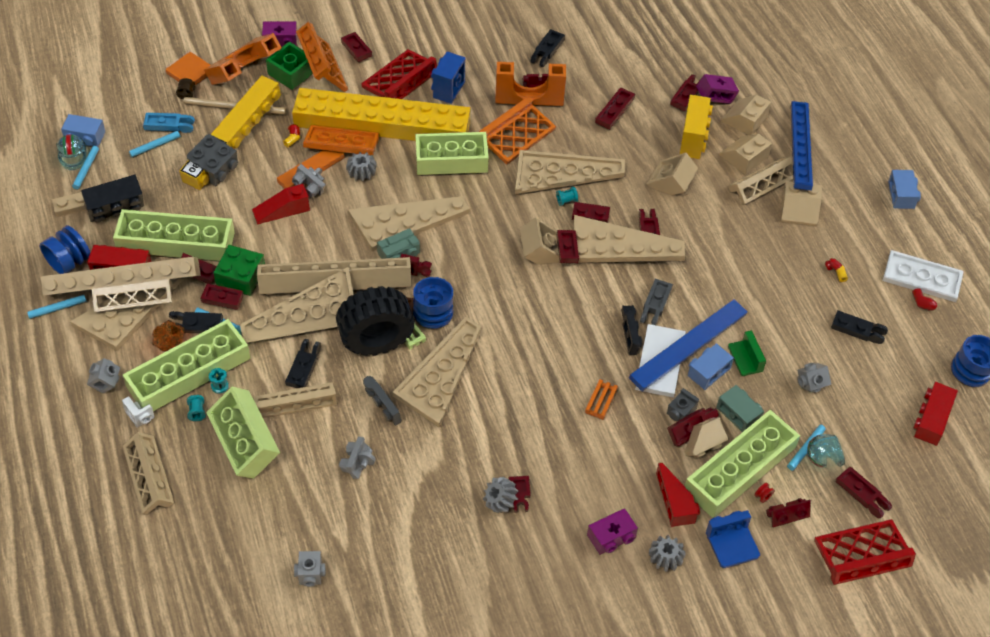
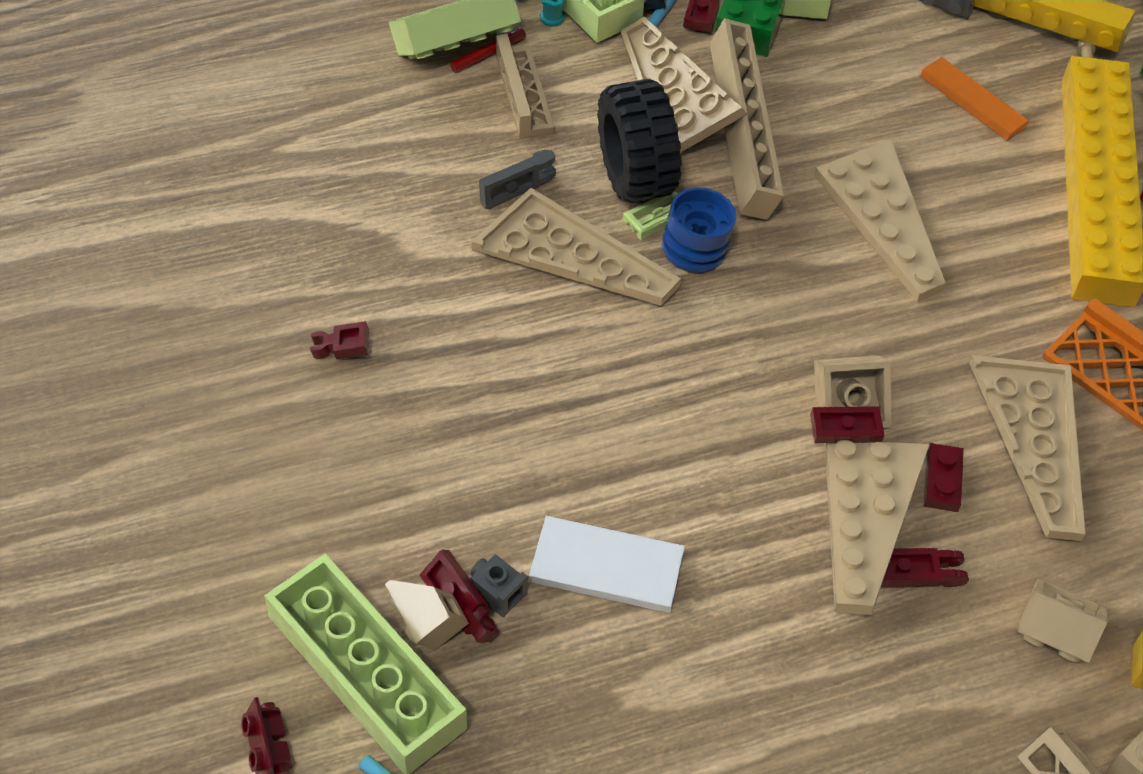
camera: 90 degrees right, 0 degrees up
(283, 204) = (888, 67): red slope -> none
(294, 131) = (1038, 76): arm -> none
(303, 365) = (574, 94): black hinge -> none
(309, 568) = (237, 100): light grey brick -> none
(311, 178) = (941, 91): light grey hips -> none
(341, 140) = (1038, 129): orange tile -> none
(359, 458) = (416, 151): light grey hips -> none
(361, 166) = (984, 152): light grey gear -> none
(399, 244) = (817, 198): sand green brick -> none
(418, 267) = (784, 213): dark red plate -> none
(451, 153) = (1036, 264): yellowish green brick -> none
(500, 494) = (332, 308): light grey gear -> none
(567, 196) = (974, 436): teal bush -> none
(606, 386) = (523, 461): orange tile -> none
(612, 531) = (254, 458): magenta brick -> none
(630, 329) = (670, 514): black hinge -> none
(656, 300) = (738, 564): dark grey hinge -> none
(659, 553) = (204, 532): light grey gear -> none
(677, 499) = (291, 552): red slope -> none
(687, 345) = (640, 609): blue tile -> none
(710, 366) = (588, 638): medium blue brick -> none
(732, 539) = (215, 637): blue bracket -> none
(739, 408) = (491, 679): sand green brick -> none
(747, 355) = (621, 713): green panel -> none
(764, 492) = (307, 701): red bush -> none

